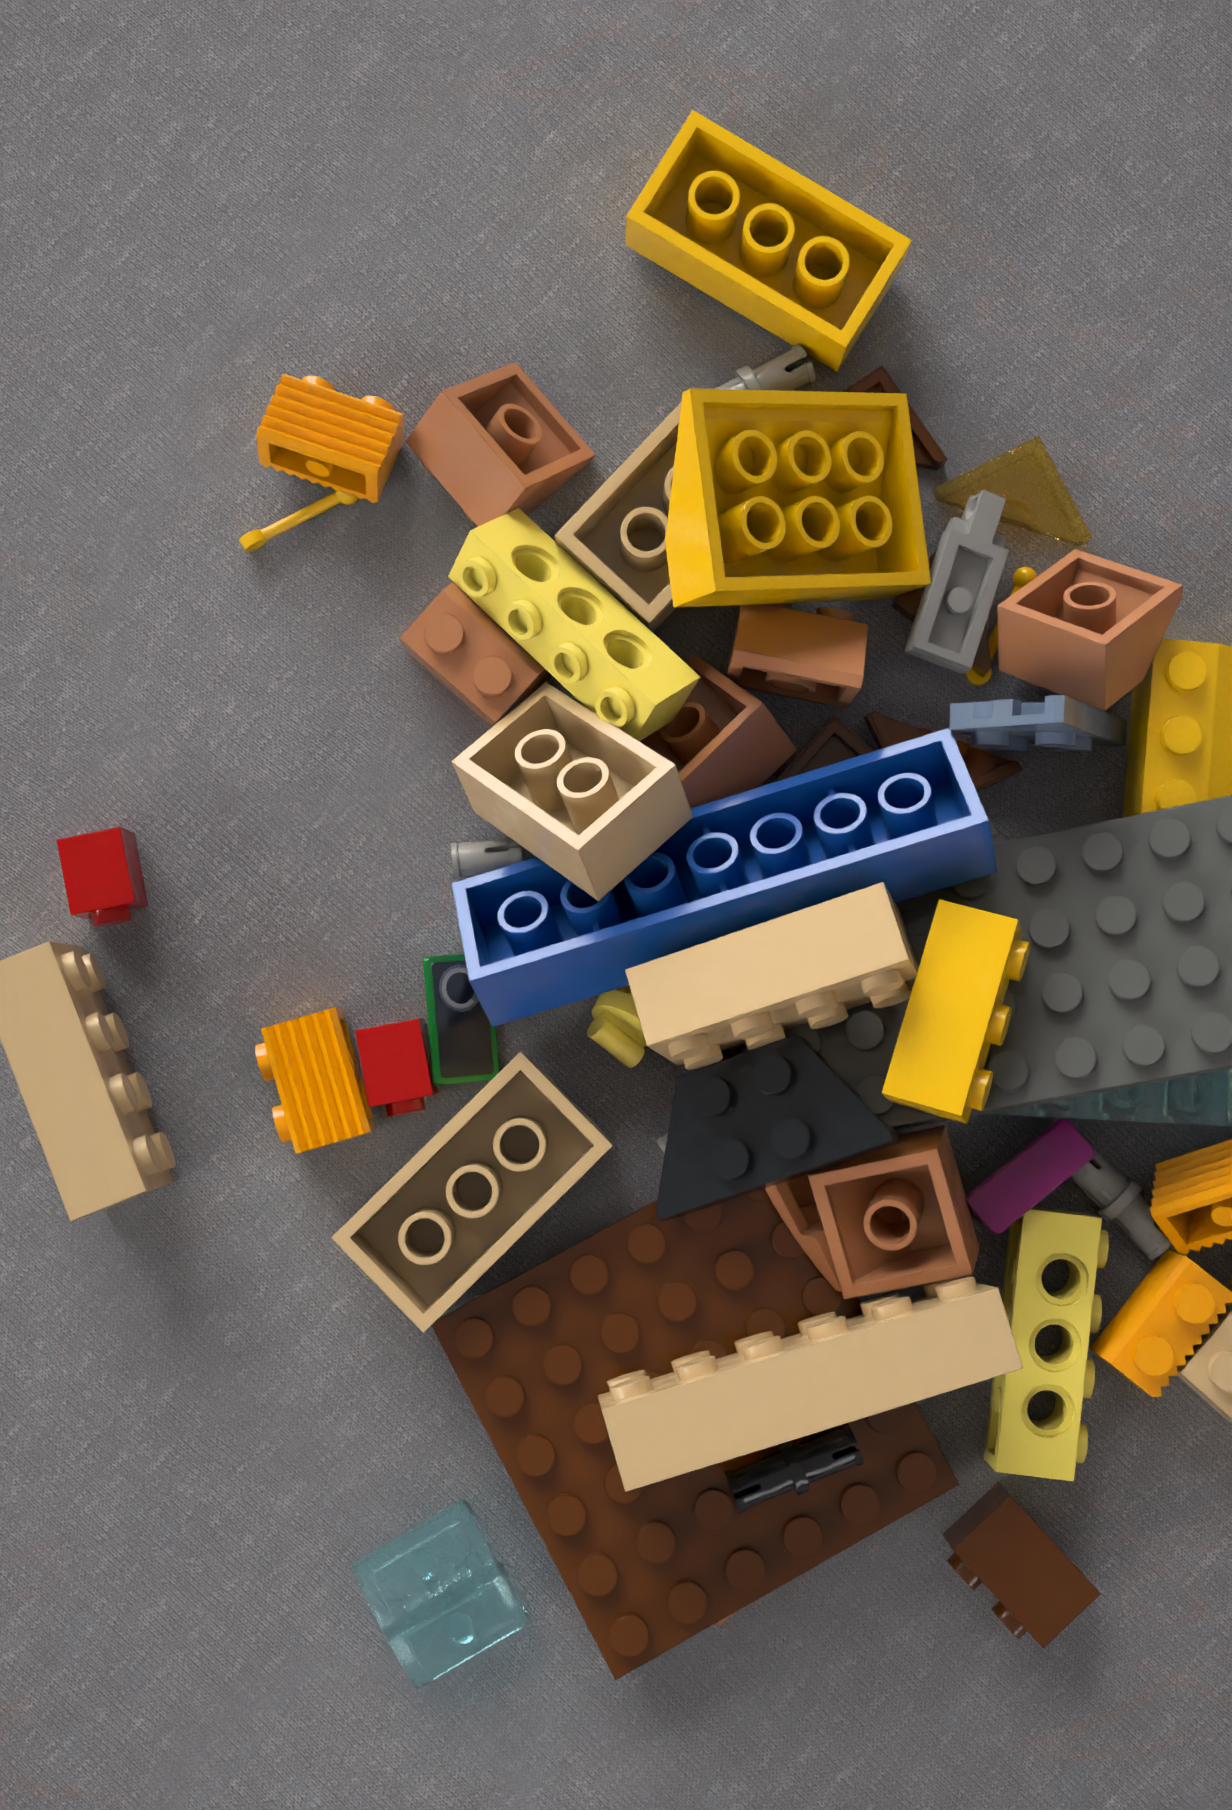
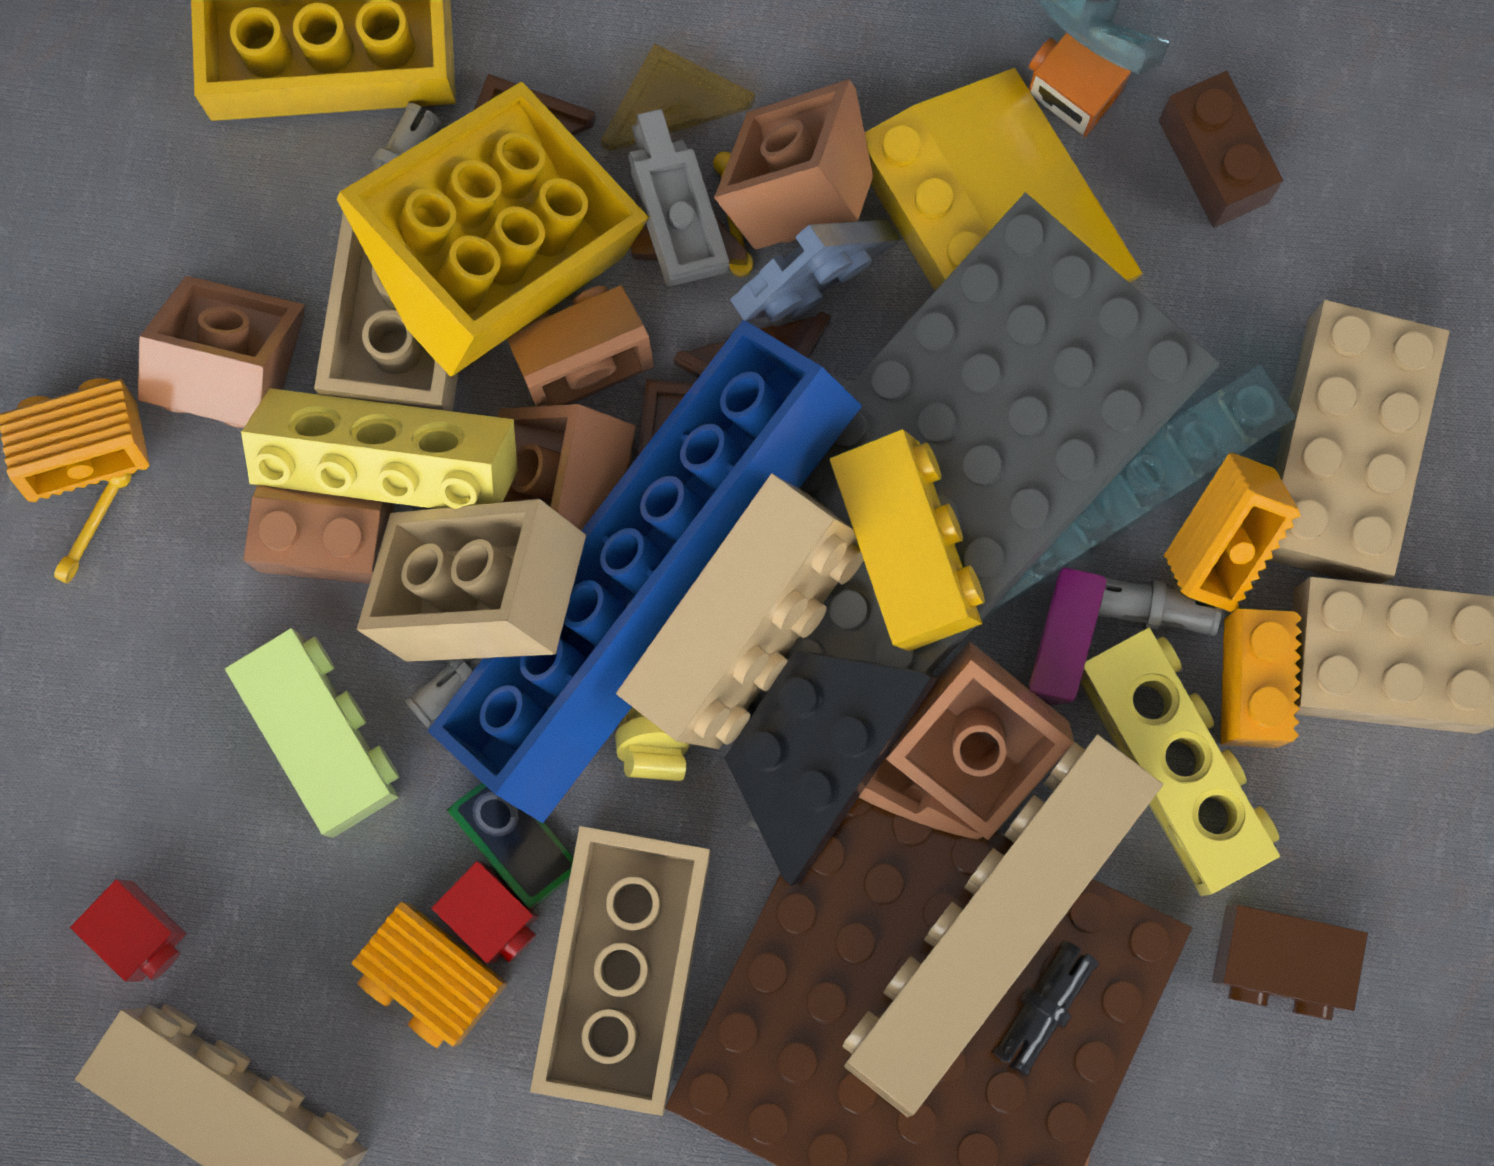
camera: 30 degrees left, 5 degrees down
(361, 816) = (314, 731): none -> yellowish green brick

